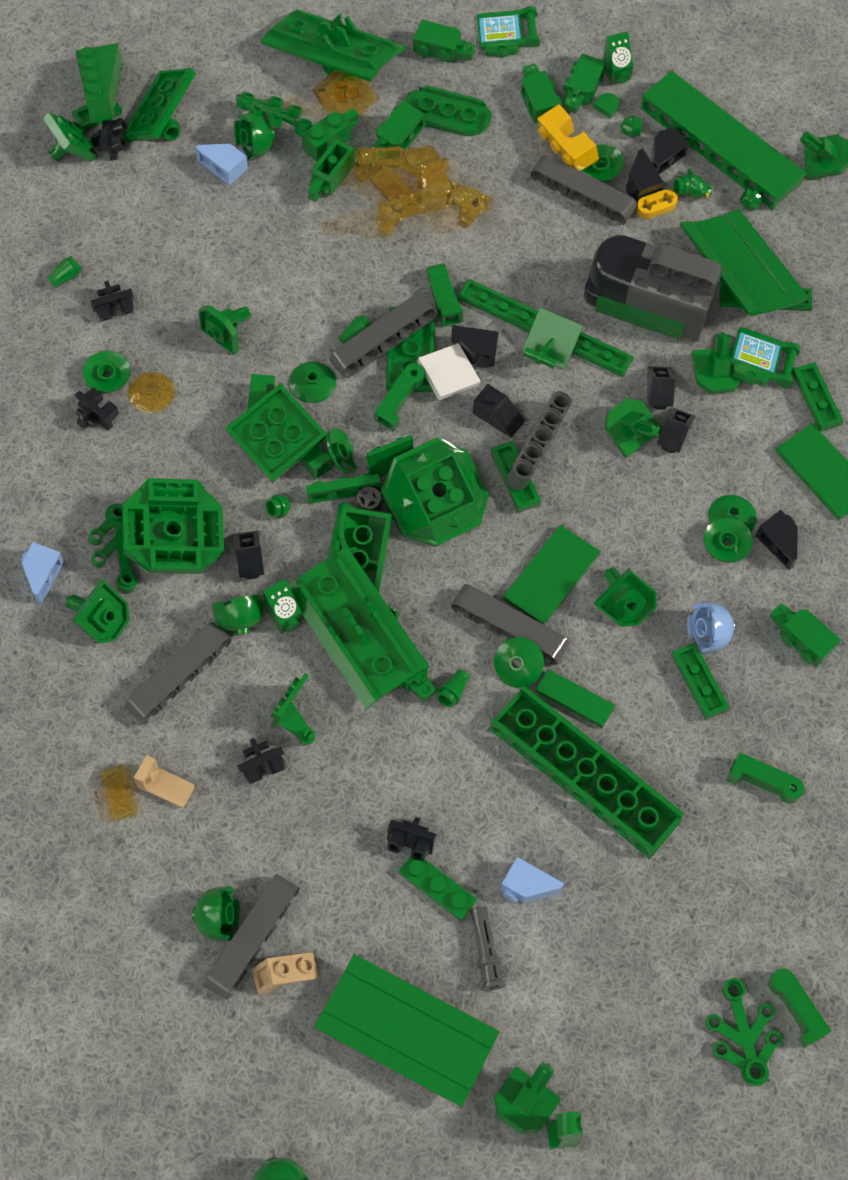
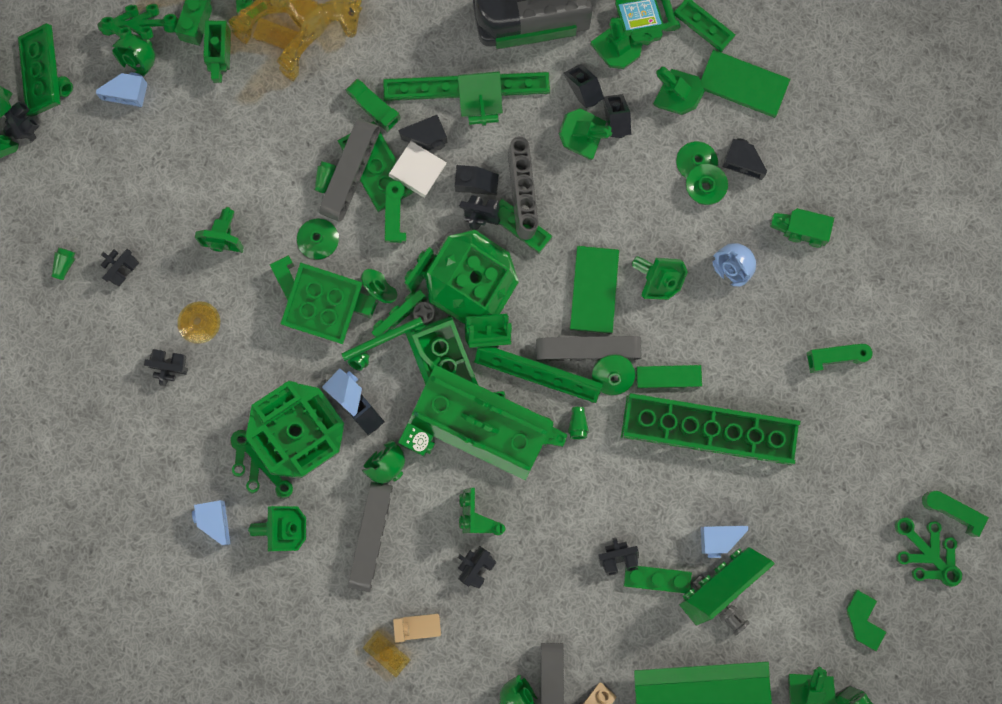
camera: 30 degrees left, 15 degrees up
(103, 363) = (144, 324): green dish -> none
(245, 522) = (344, 390): none -> light blue slope
(312, 496) = (382, 338): none -> green bar
(420, 548) = (487, 330): none -> green hinge
(444, 618) = (538, 373): none -> green tile
(483, 440) = (478, 214): none -> black hips
(501, 925) = (725, 585): none -> green slope
(624, 1072) = (858, 613): none -> green tile
(700, 681) = (750, 309): green plate -> none
(753, 440) = (679, 92): none -> green piece

